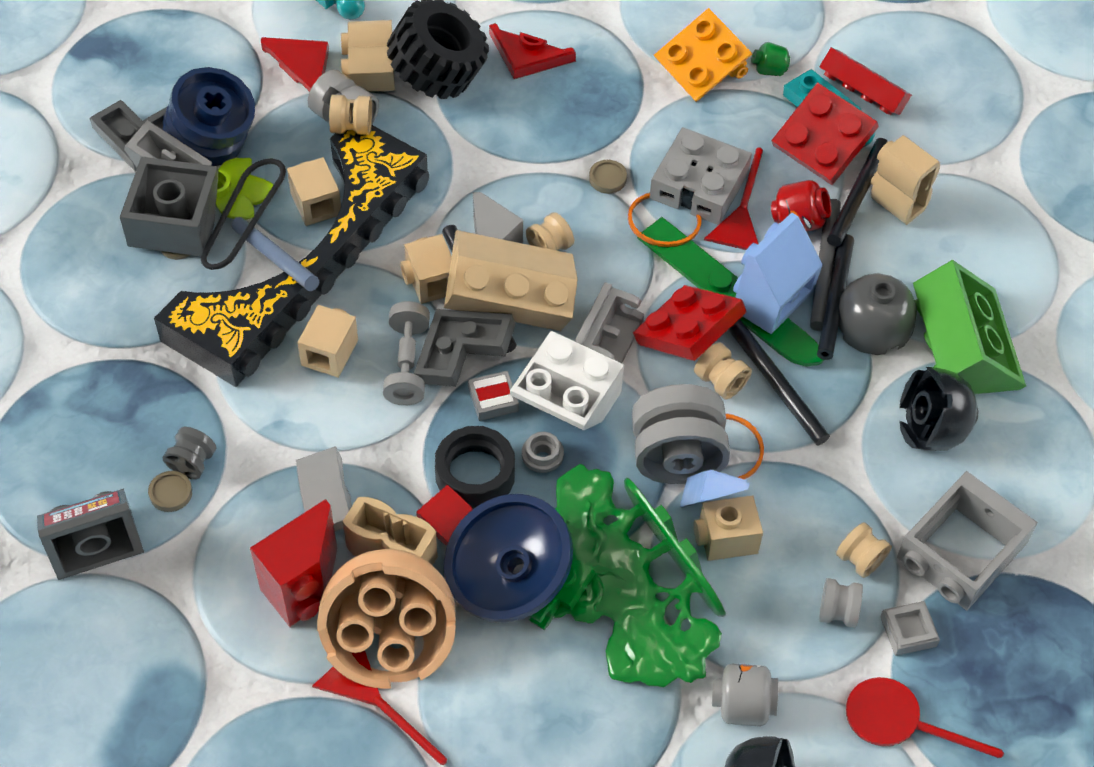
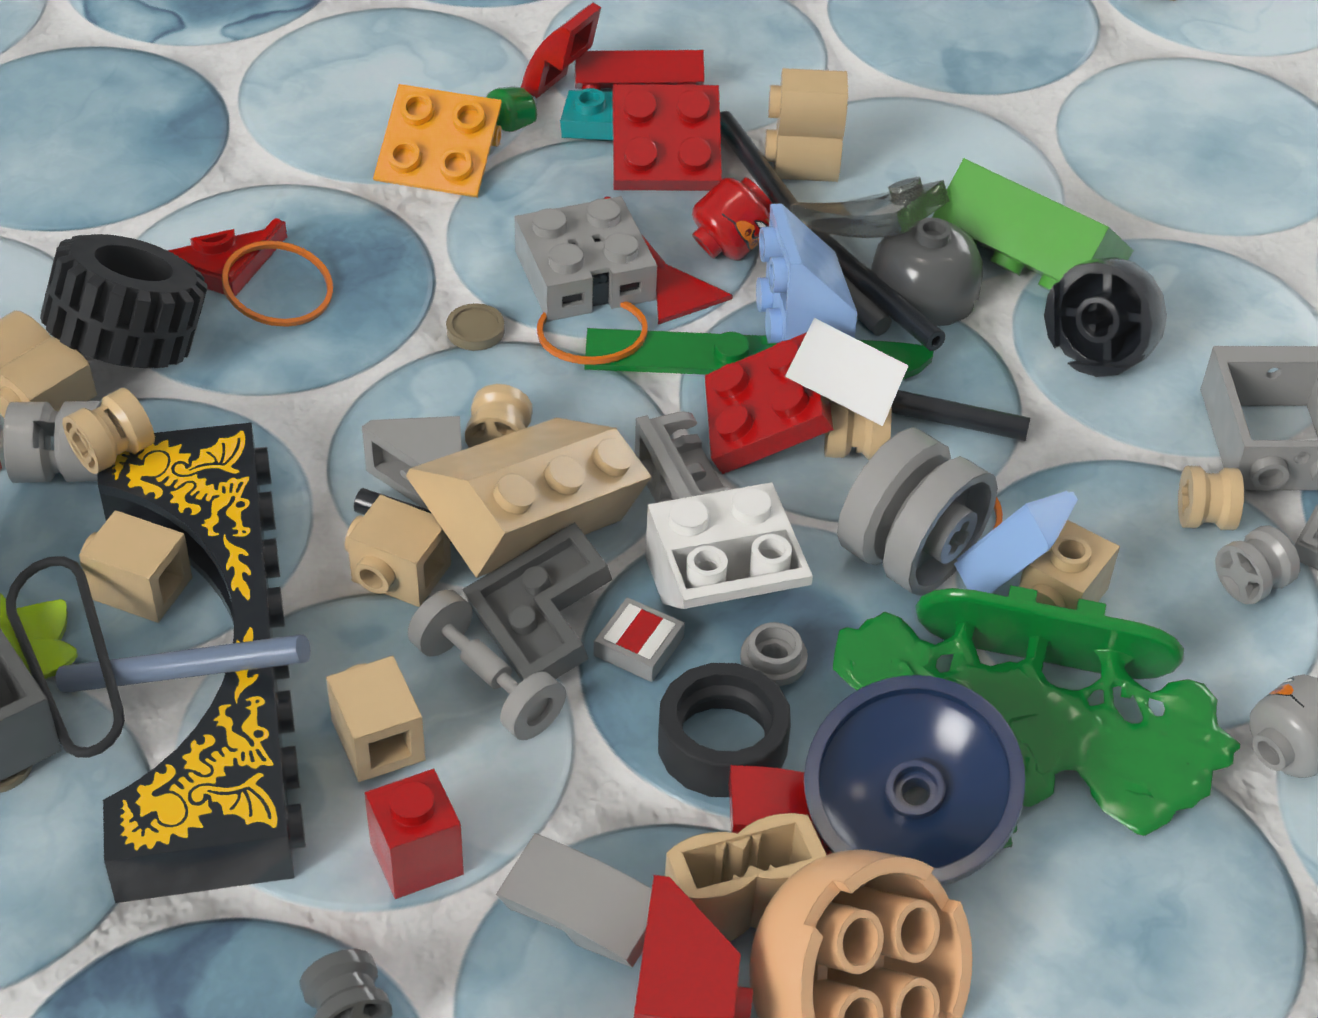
camera: 45 degrees left, 10 degrees down
(288, 405) = (414, 833): none -> red brick
(542, 57) = (269, 320): none -> orange piece
(735, 335) = (847, 371): none -> white sticker
(817, 42) = (560, 50): none -> red slope
(872, 258) = (878, 214): none -> clear smoke plate

